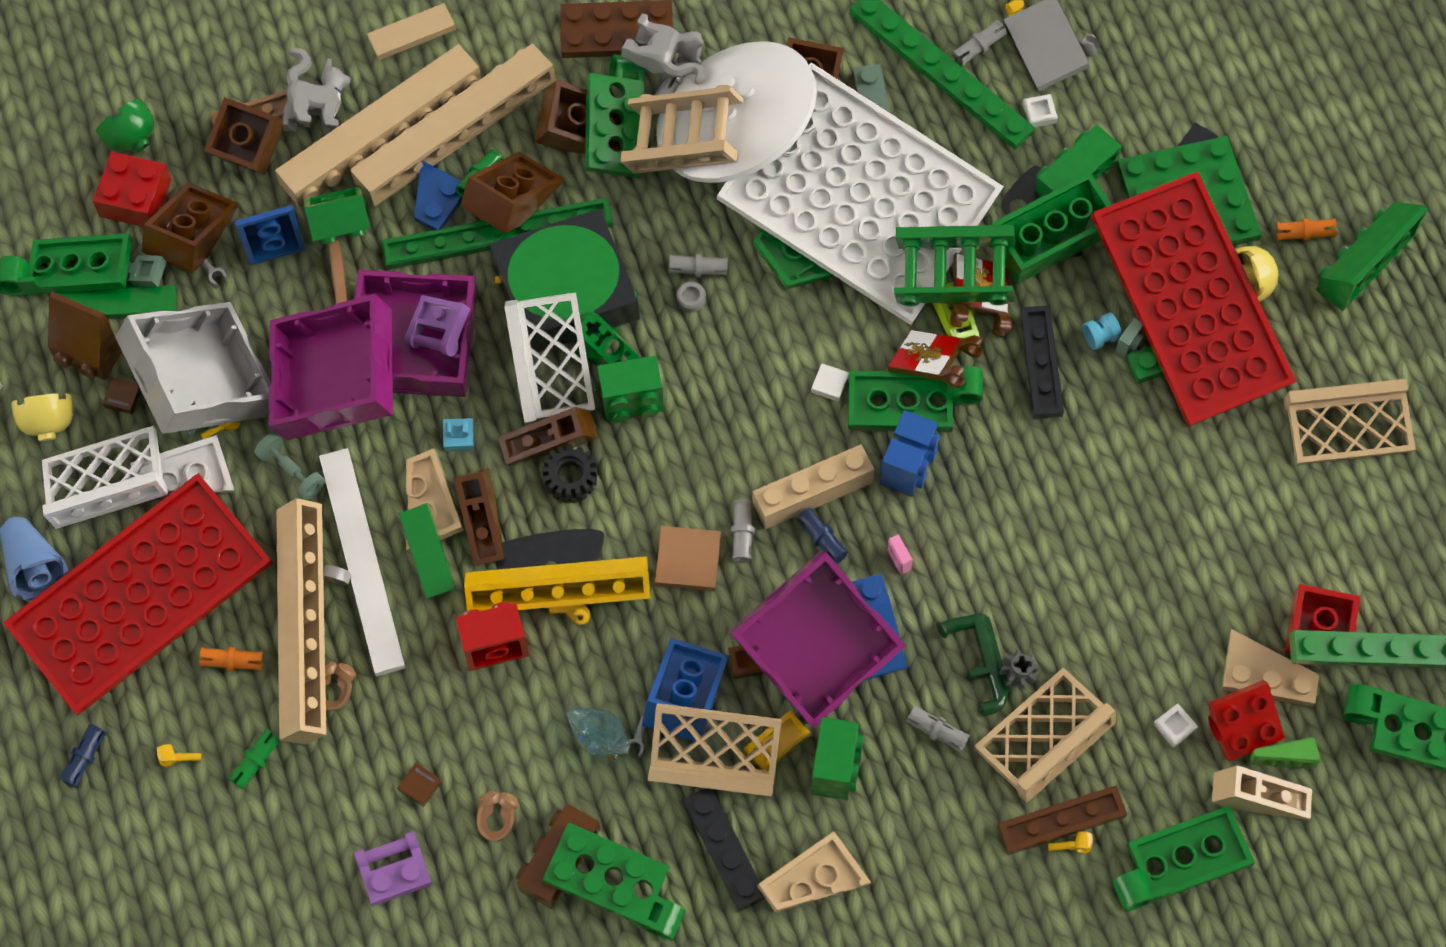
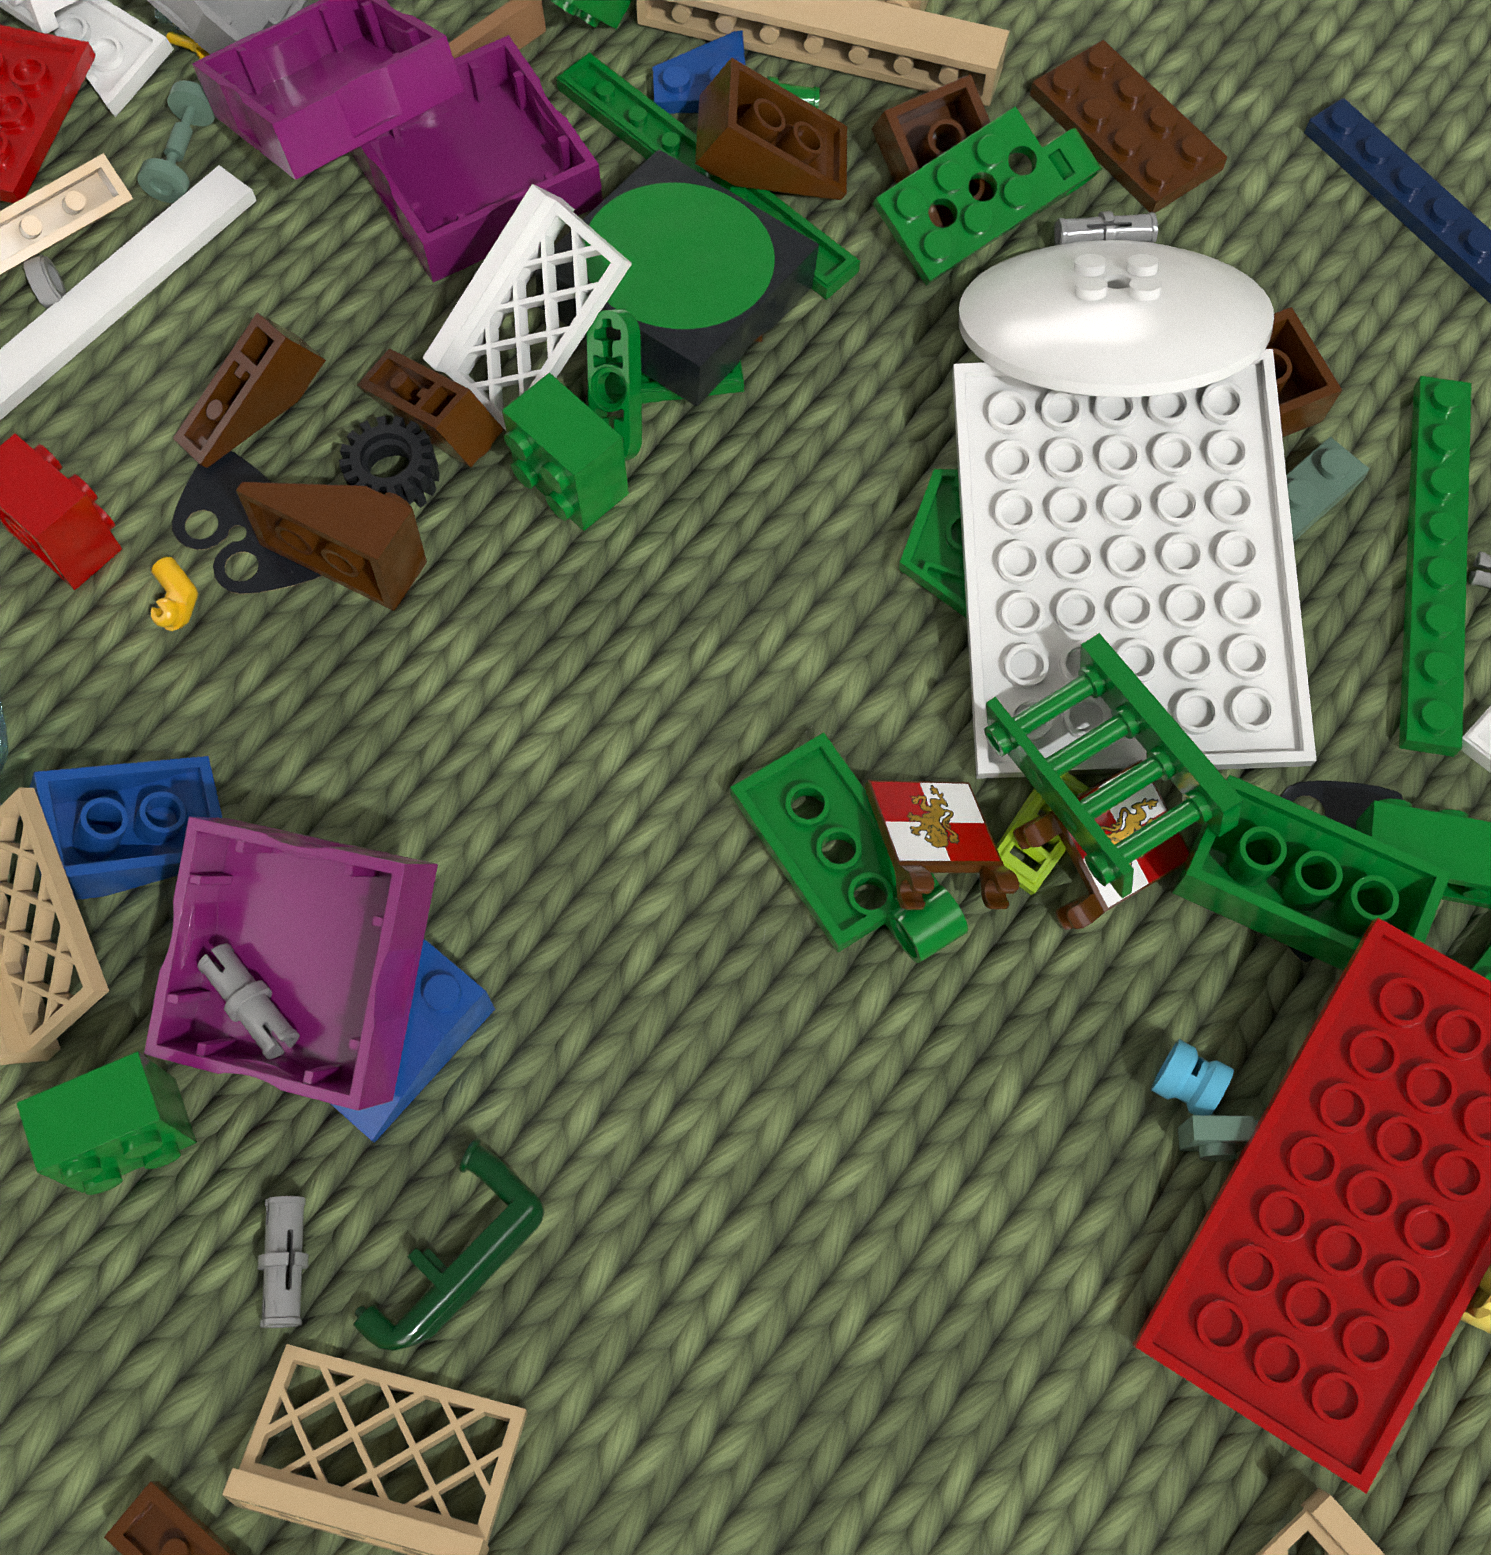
camera: 55 degrees right, 0 degrees up
(427, 551) = (146, 362): green tile -> none
(429, 485) = (208, 338): tan wing -> none
(439, 316) = (505, 165): medium lavender plate -> none
(458, 434) = (363, 301): medium azure tile -> none
(559, 584) = (189, 552): yellow brick -> none
(609, 509) = (341, 533): none -> reddish brown slope
(662, 46) = (1135, 171): light grey animal -> none
(688, 558) = (358, 702): medium nougat tile -> none
(691, 296) = (789, 454): light grey tile -> none
(692, 152) = (994, 287): tan fence -> none
(698, 265) = (843, 430): light grey pin -> none
(742, 530) = (449, 747): light grey pin -> none
(791, 735) = (117, 1019): yellow tile -> none
(813, 486) = (587, 800): tan brick -> none
(819, 671) = (248, 1001): none -> light grey pin
(822, 535) = (516, 867): dark blue pin -> none
(830, 382) = (789, 720): white tile -> none
(899, 554) = (557, 1003): bright pink tile -> none
(910, 455) = (740, 918): blue piece -> none
(1016, 665) = (449, 1332): dark grey gear -> none
(1041, 362) = (1061, 1017): black plate -> none
(1144, 365) = (1187, 1191): green plate -> none

